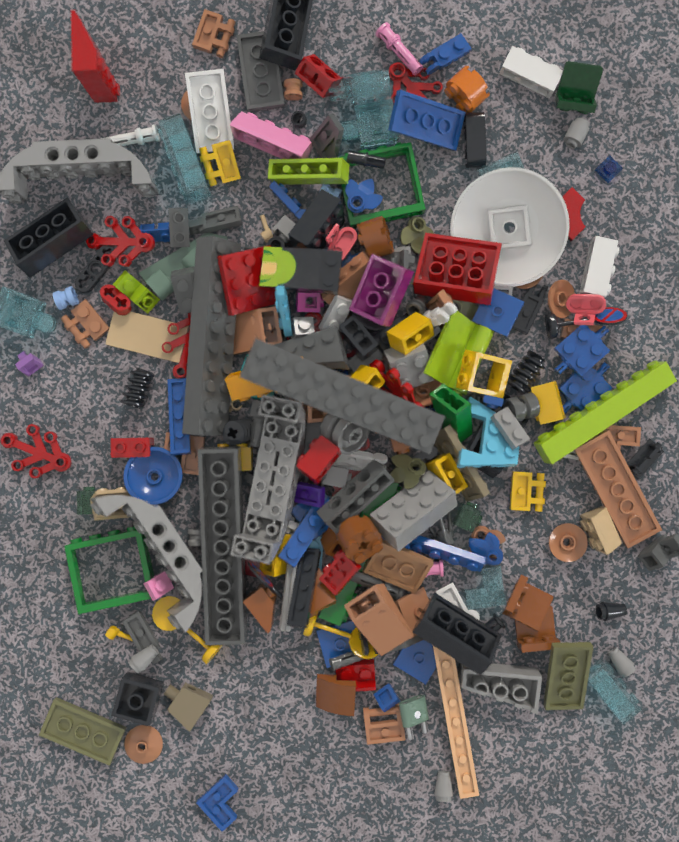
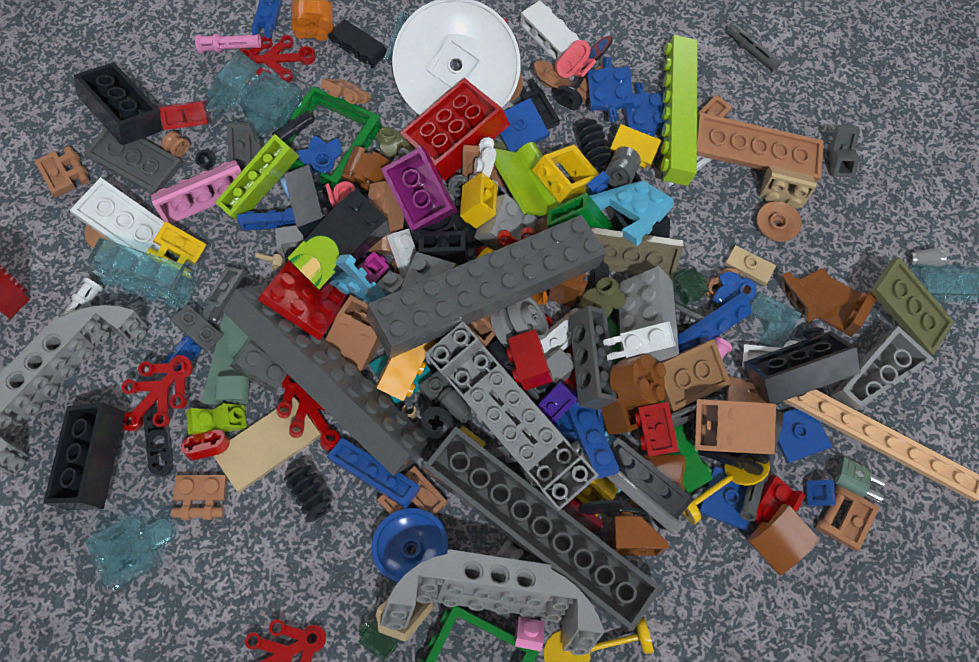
camera: 55 degrees left, 20 degrees down
(28, 363) = (183, 587): medium lavender tile -> none
(65, 298) = (156, 493): light blue wheel -> none
(131, 447) = (361, 544): red bracket -> none
(383, 523) = (642, 341): none -> white hinge
(426, 120) = (306, 59): blue plate -> none
(428, 166) = (350, 91): none -> nougat plate
(443, 787) = (956, 509): light grey cone -> none
(446, 469) = (630, 265): yellow brick -> none
(510, 428) = (635, 183): light grey plate -> none
(518, 545) = (750, 265): none -> tan plate
(521, 491) = (700, 225): yellow plate -> none
(607, 611) = (870, 233): black cone -> none
(645, 458) = (745, 108): black hinge -> none

